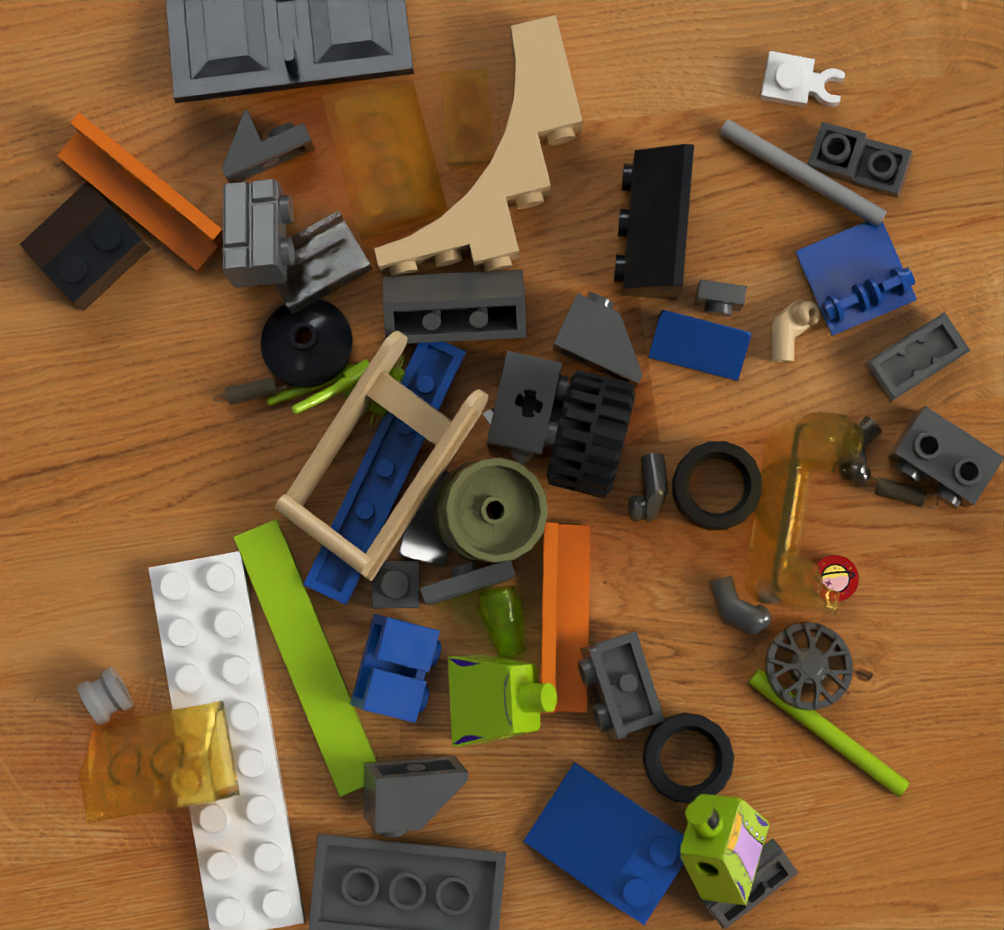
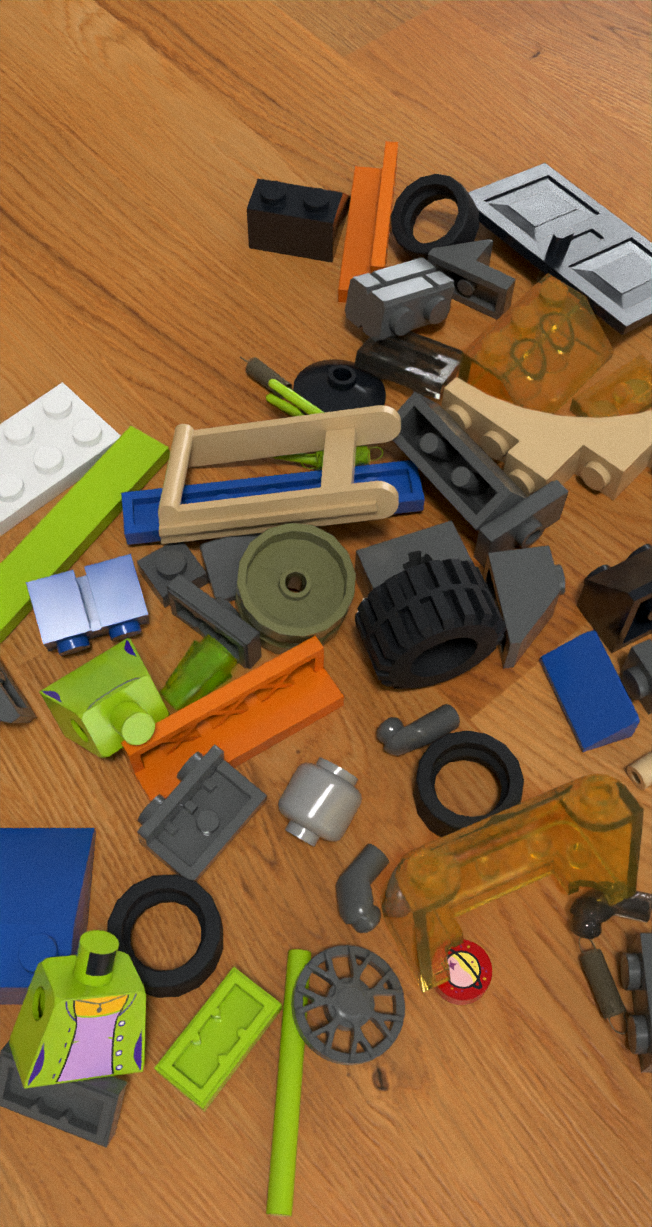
camera: 50 degrees right, 25 degrees down
(178, 172) = (421, 194): none -> black tyre
(537, 291) = (522, 522): none -> dark grey plate
(662, 596) = (320, 801): none -> light grey head
(777, 763) = (218, 1038): none -> lime plate

